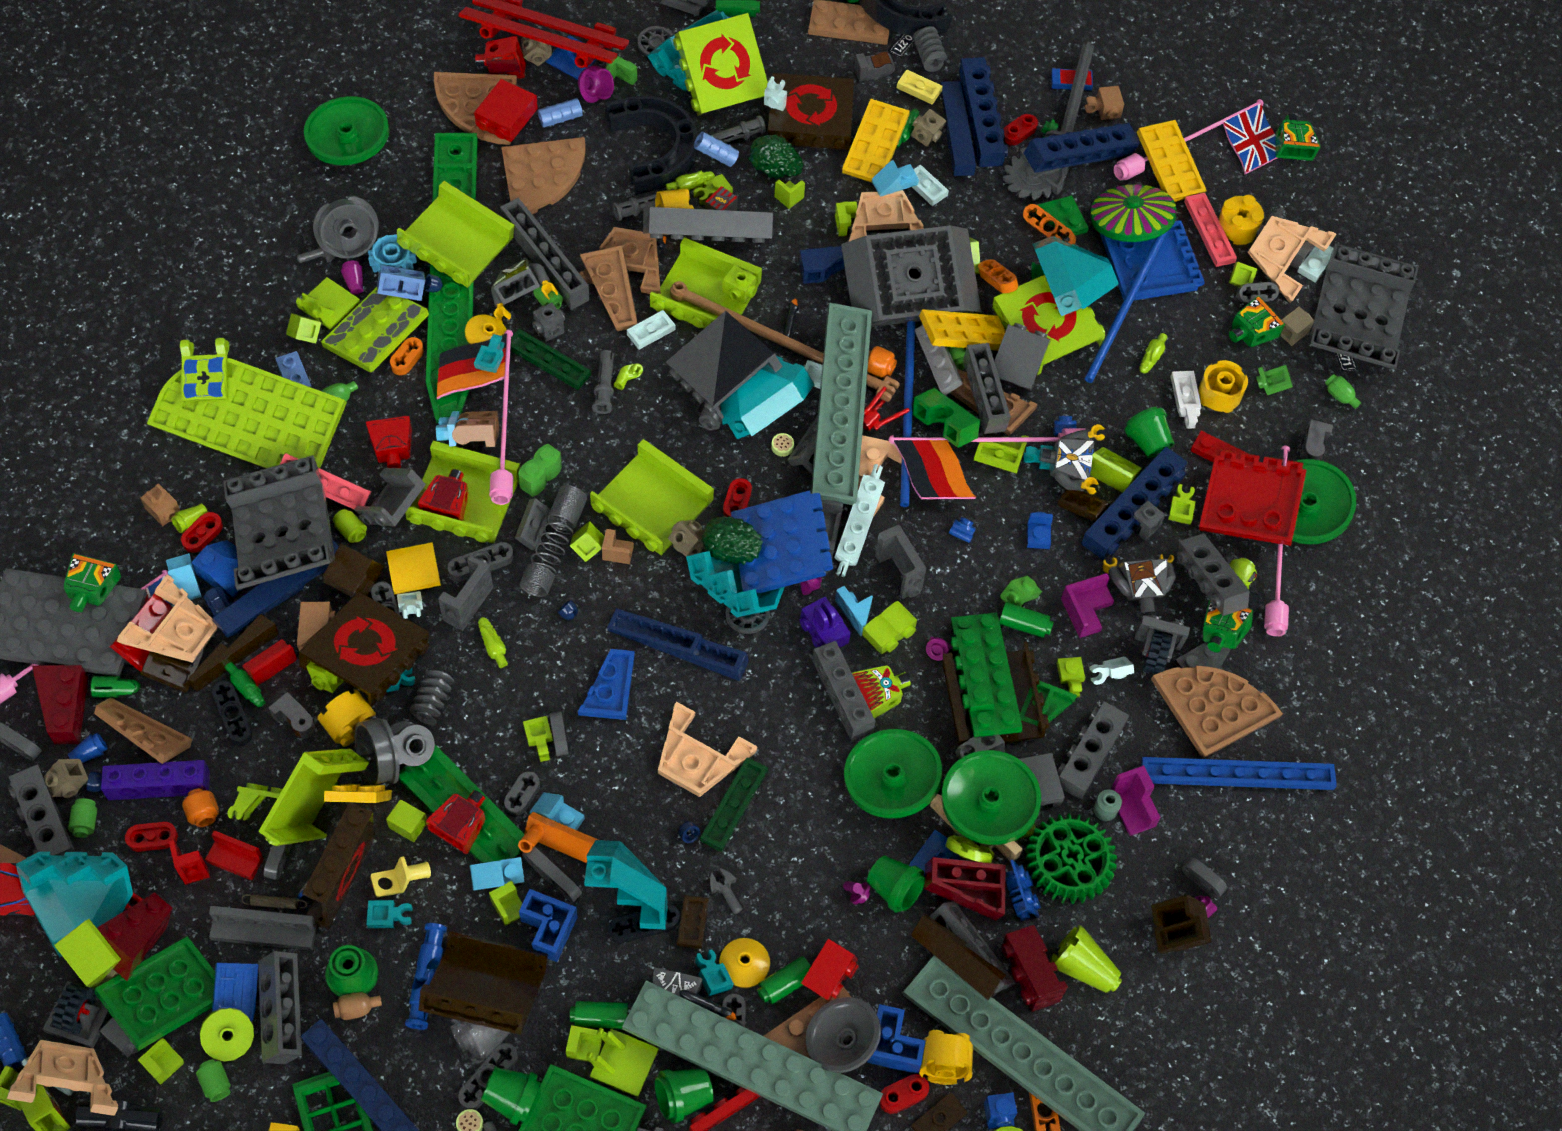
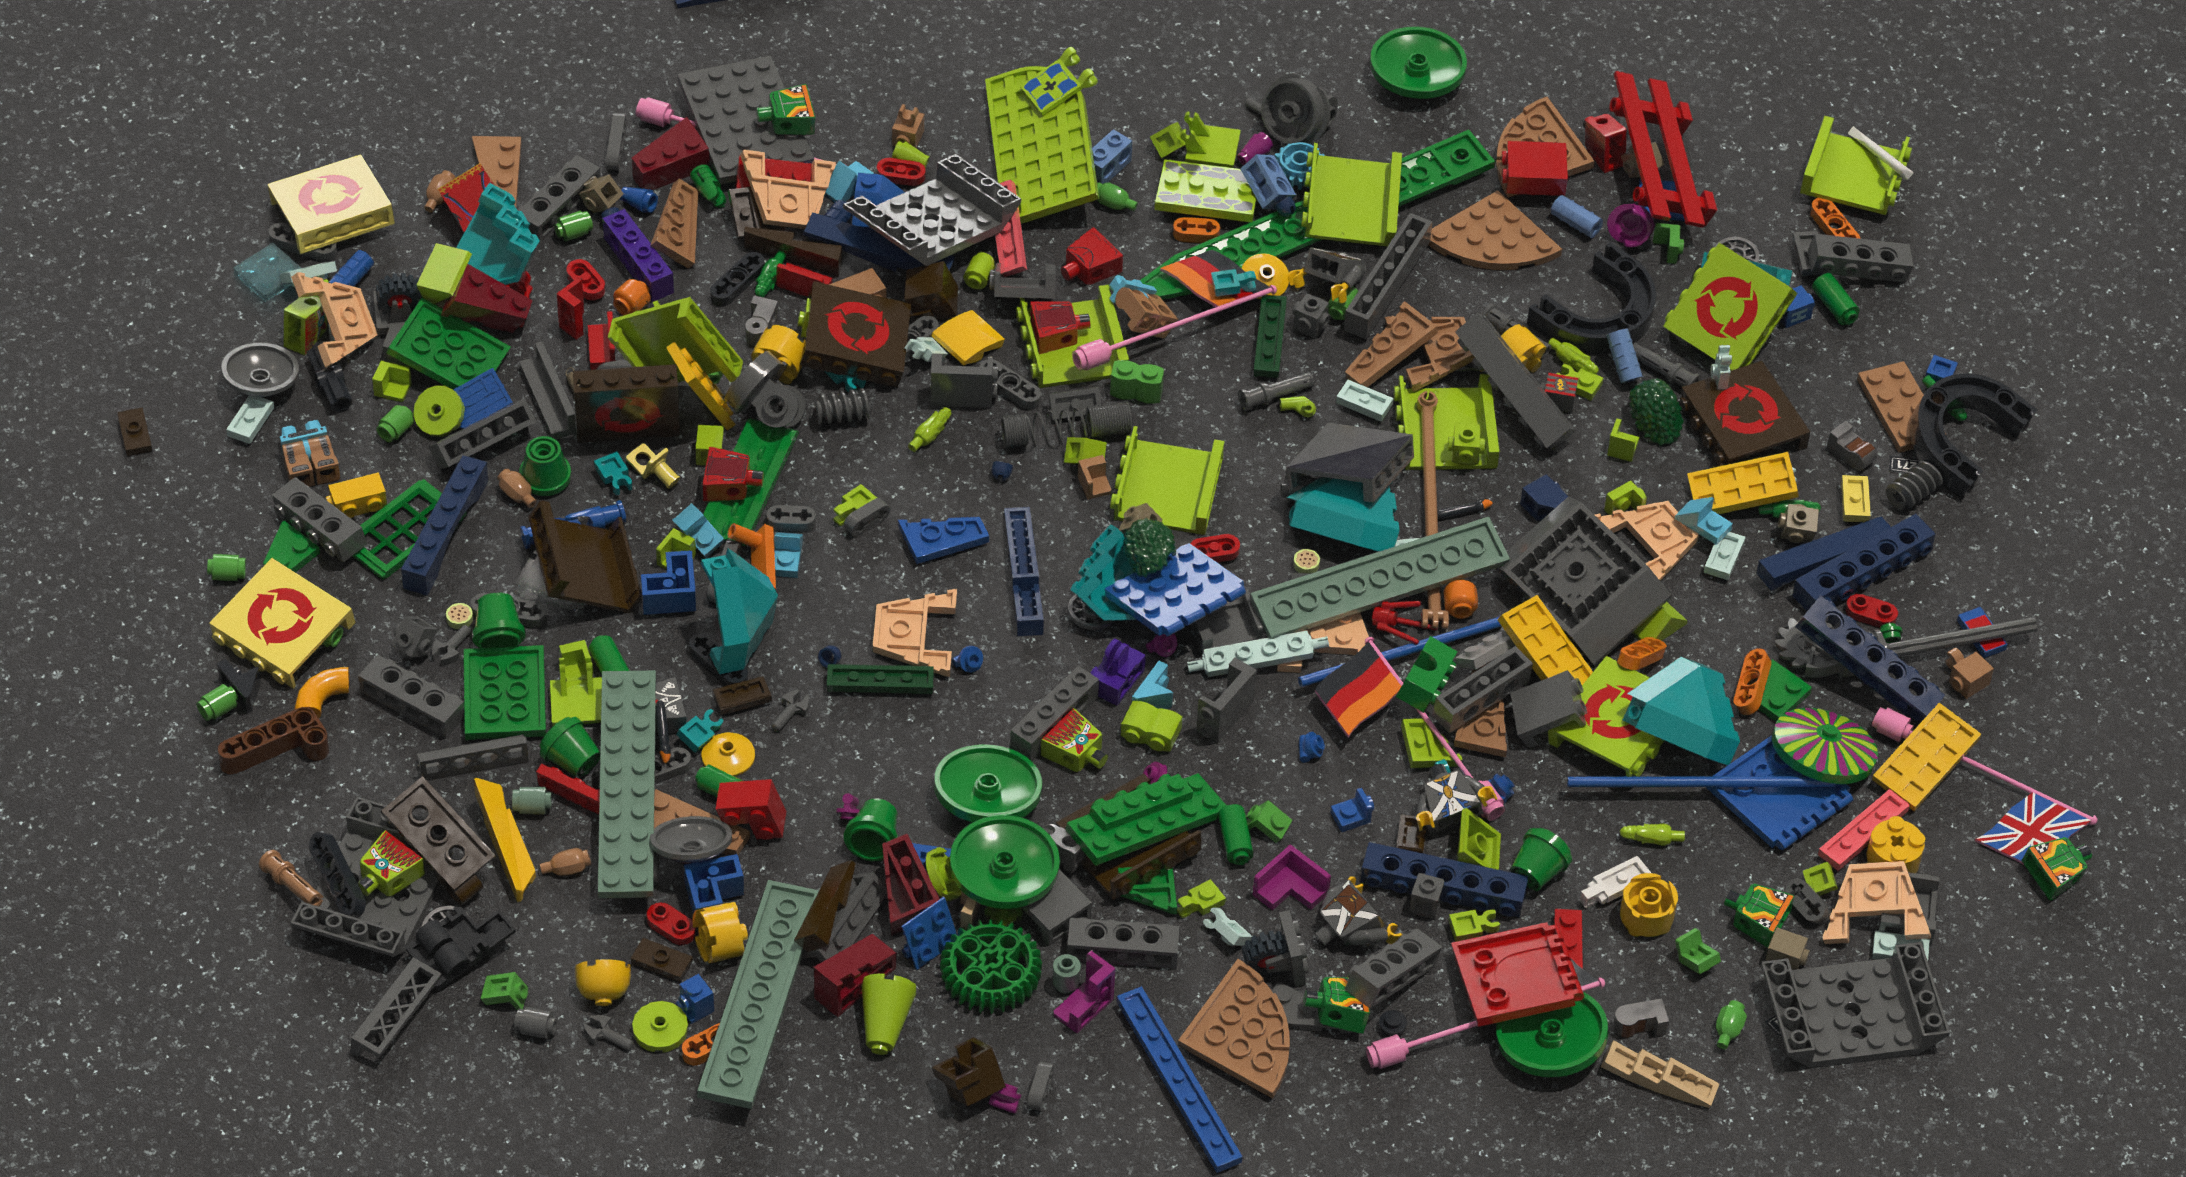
camera: 65 degrees right, 10 degrees down
(748, 727) = (969, 659): none -> blue plate
(1245, 570) = (1416, 1001): lime head -> none
(1371, 452) = (1660, 1076): none -> tan slope

